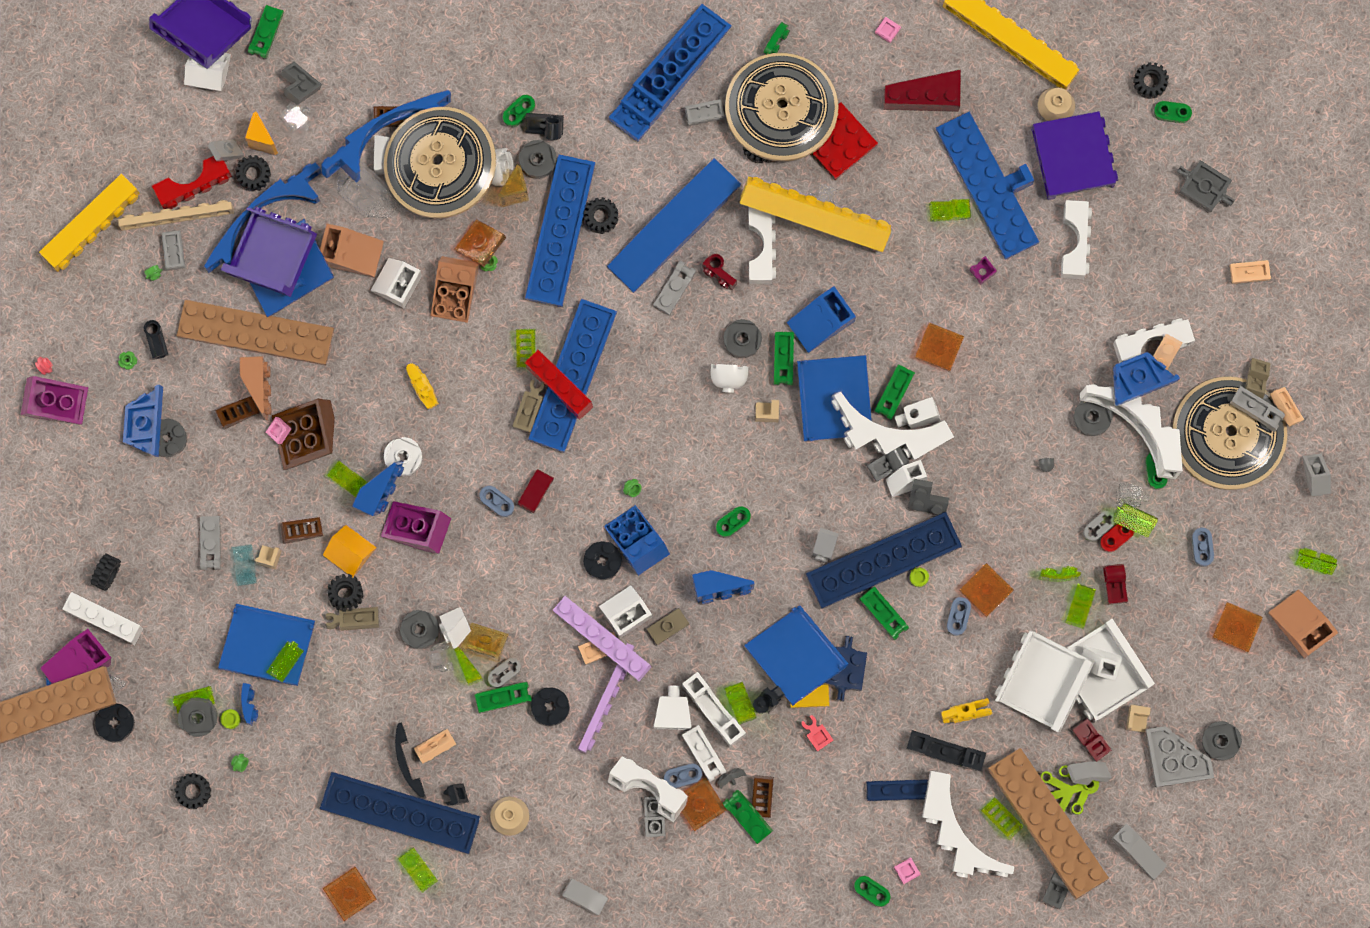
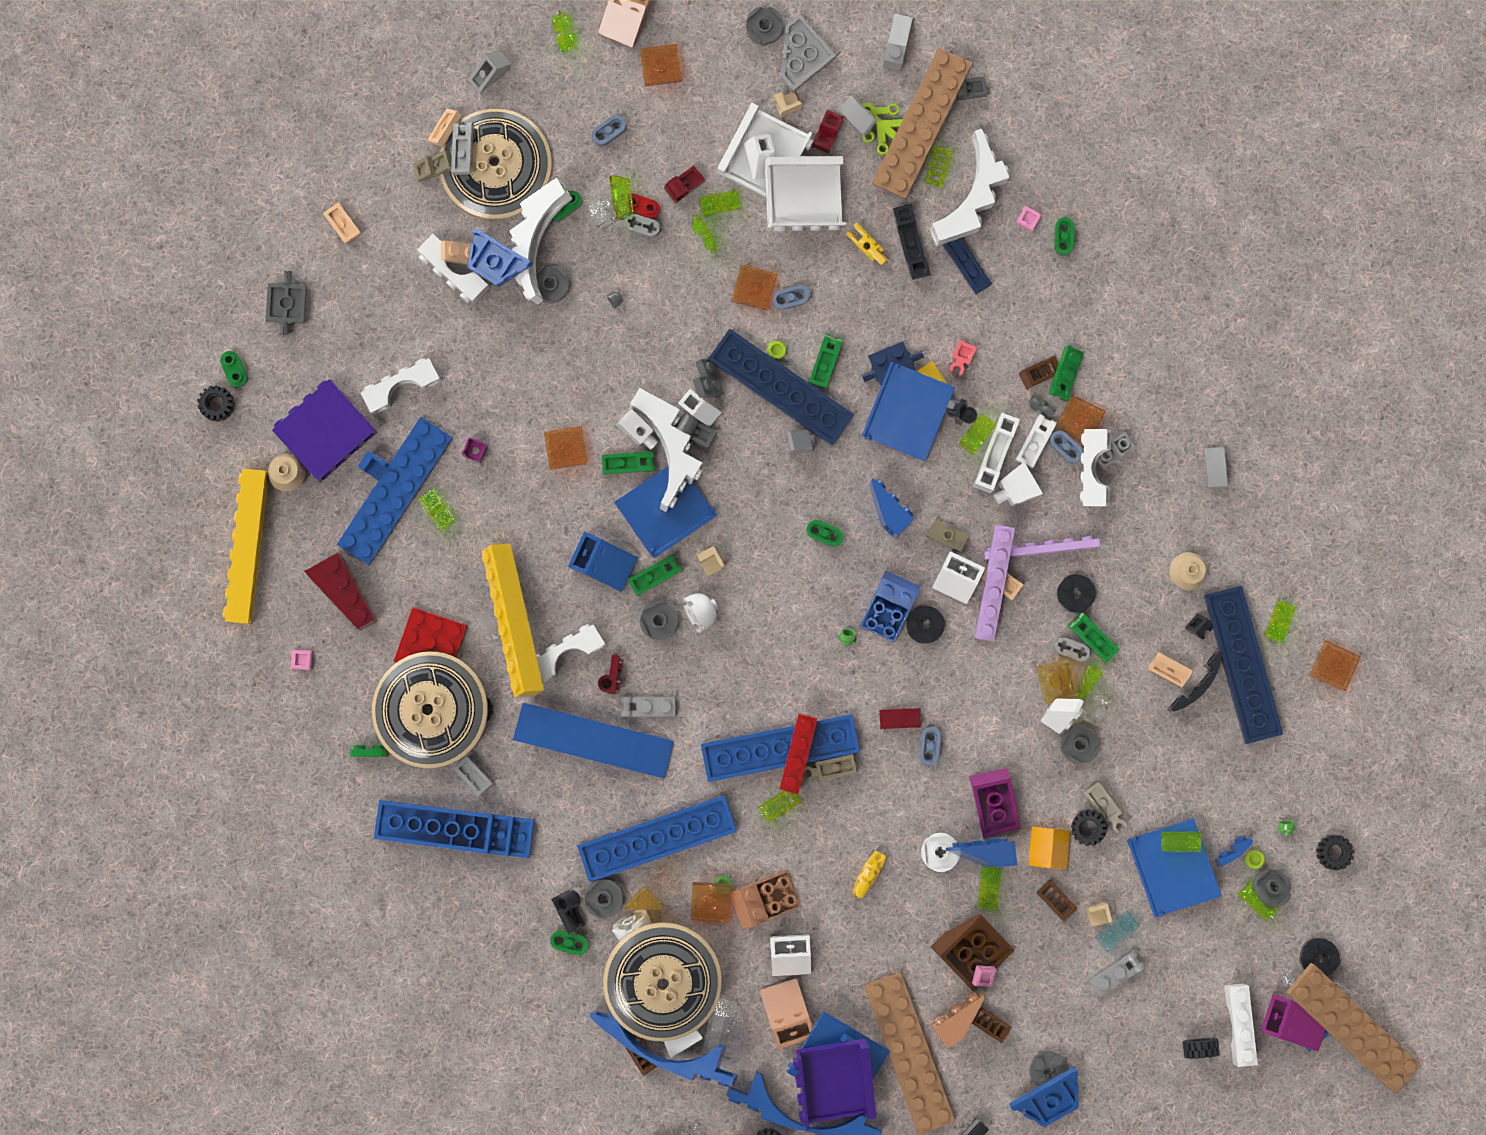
camera: 125 degrees left, 5 degrees up
(601, 226) = (621, 822): black tyre -> none

